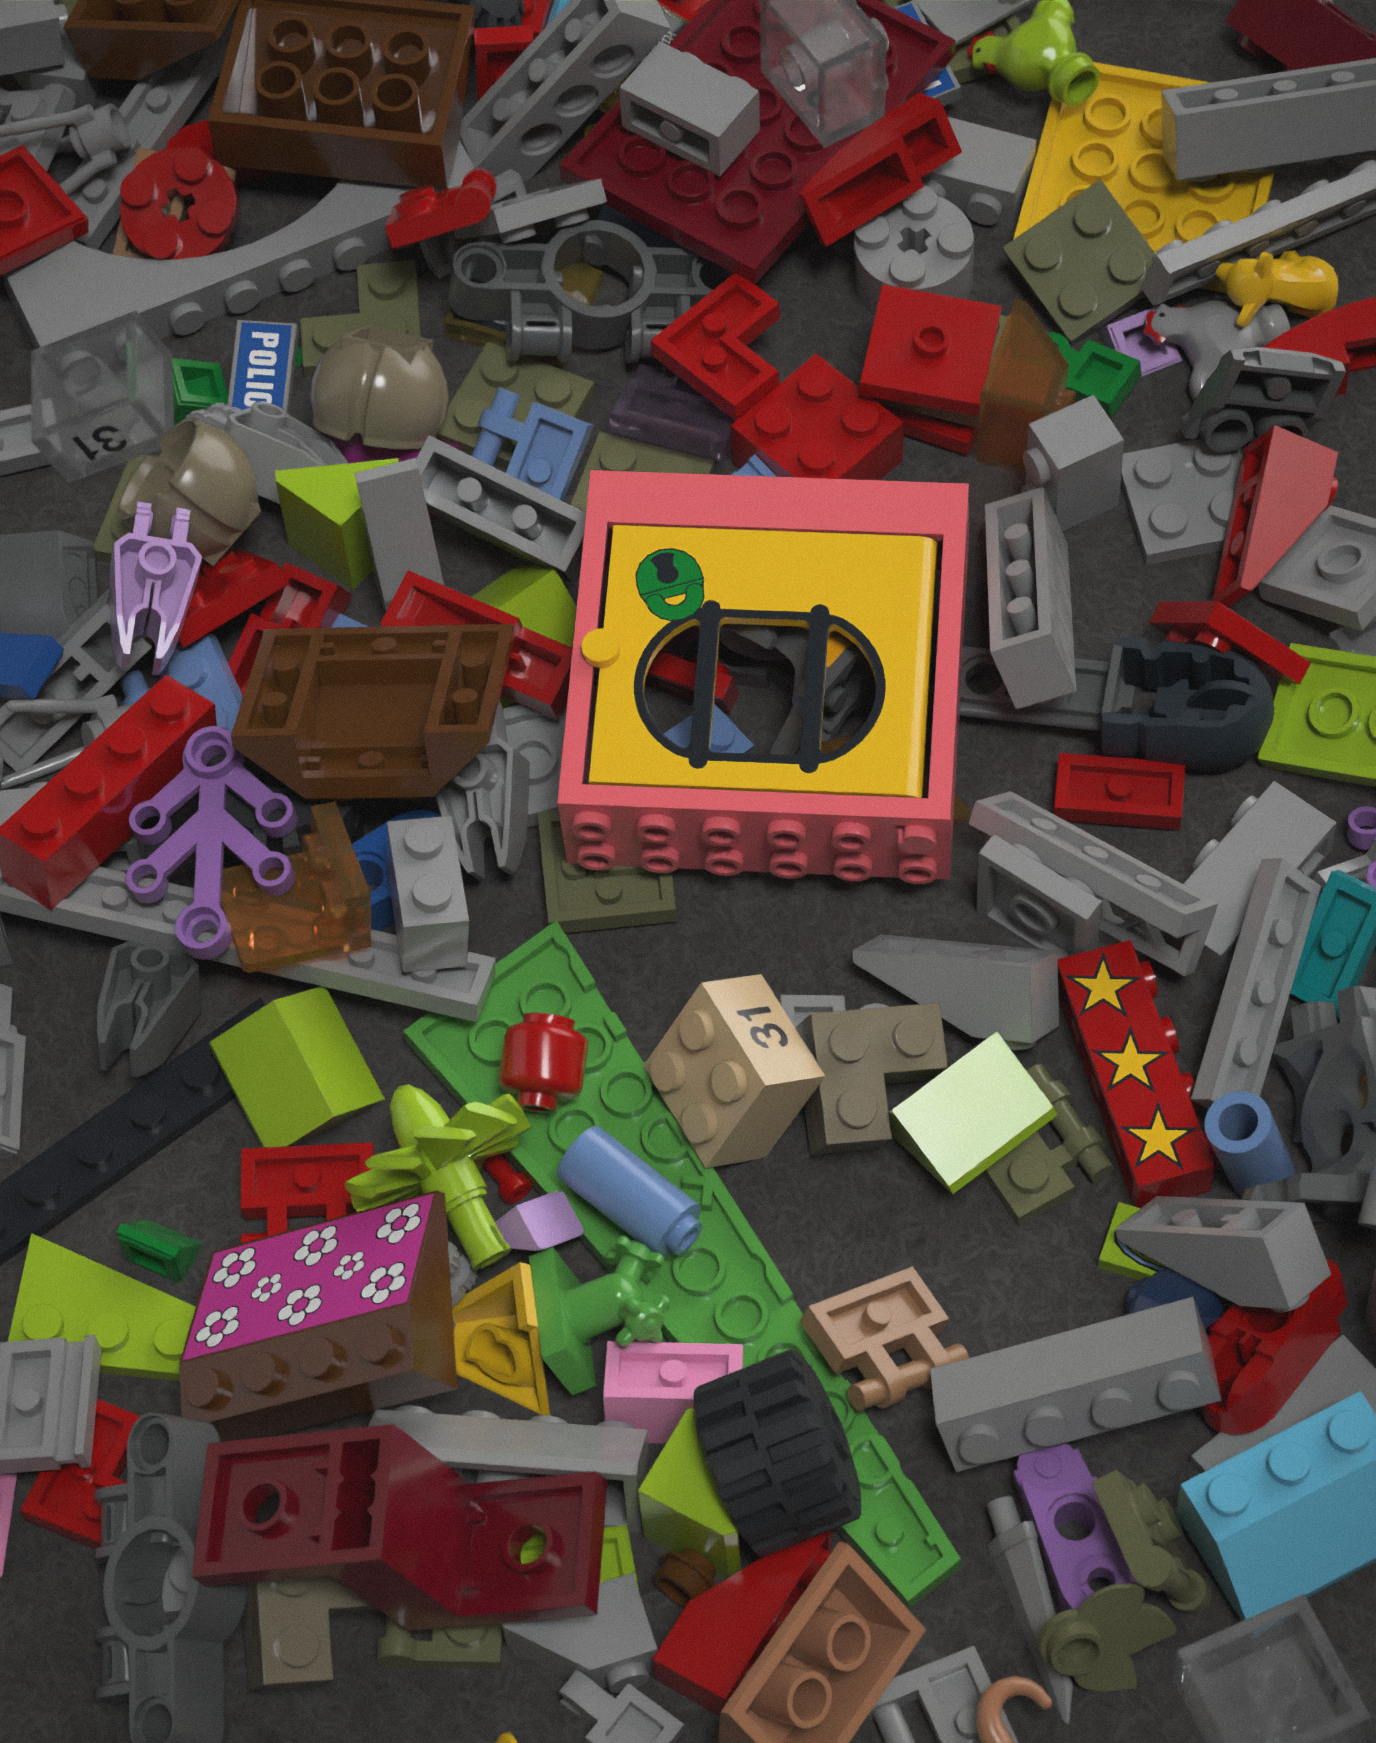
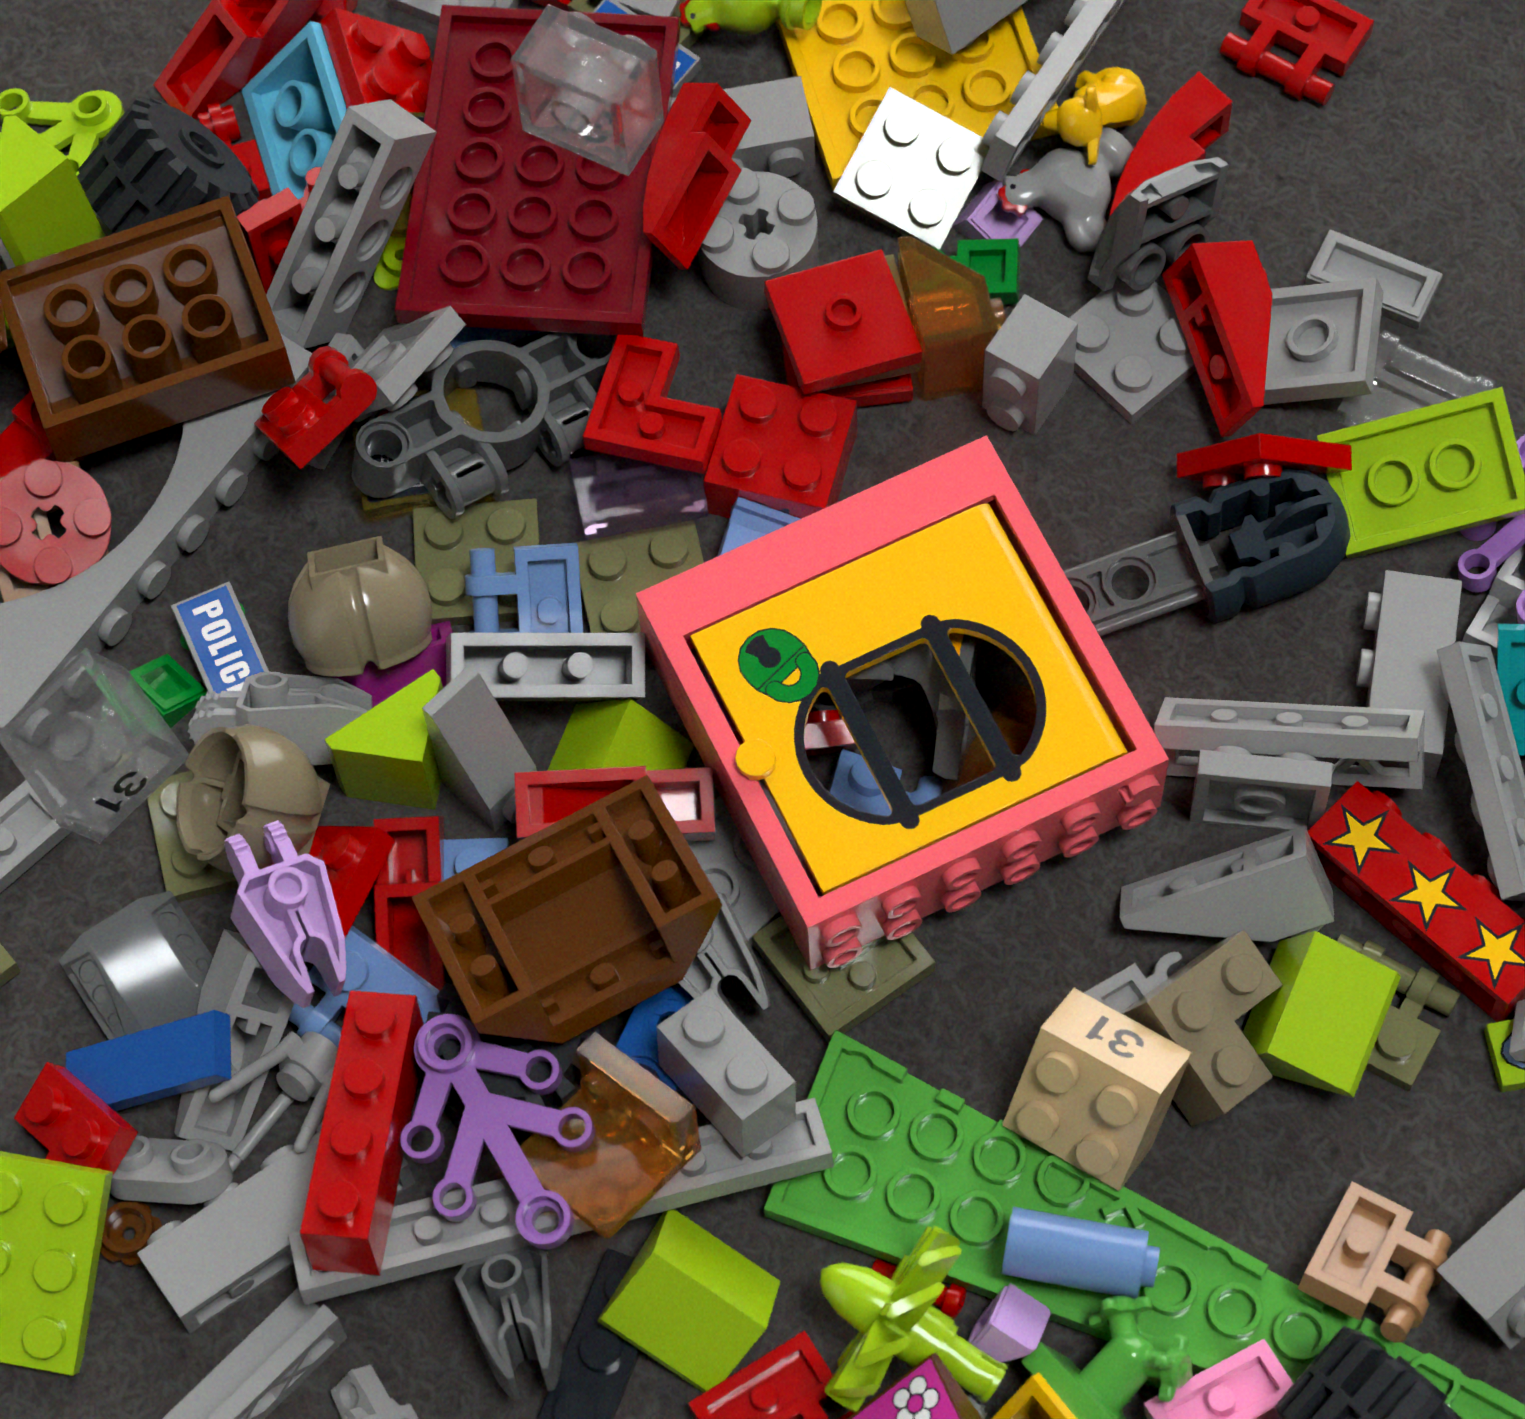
camera: 30 degrees left, 5 degrees up
(386, 301) = (296, 525): olive plate -> none
(543, 1061) = (921, 1172): red head -> none
(690, 108) = (490, 198): light grey brick -> none
(1029, 599) = (1081, 512): light grey brick -> none
(1119, 791) = (1247, 646): red plate -> none

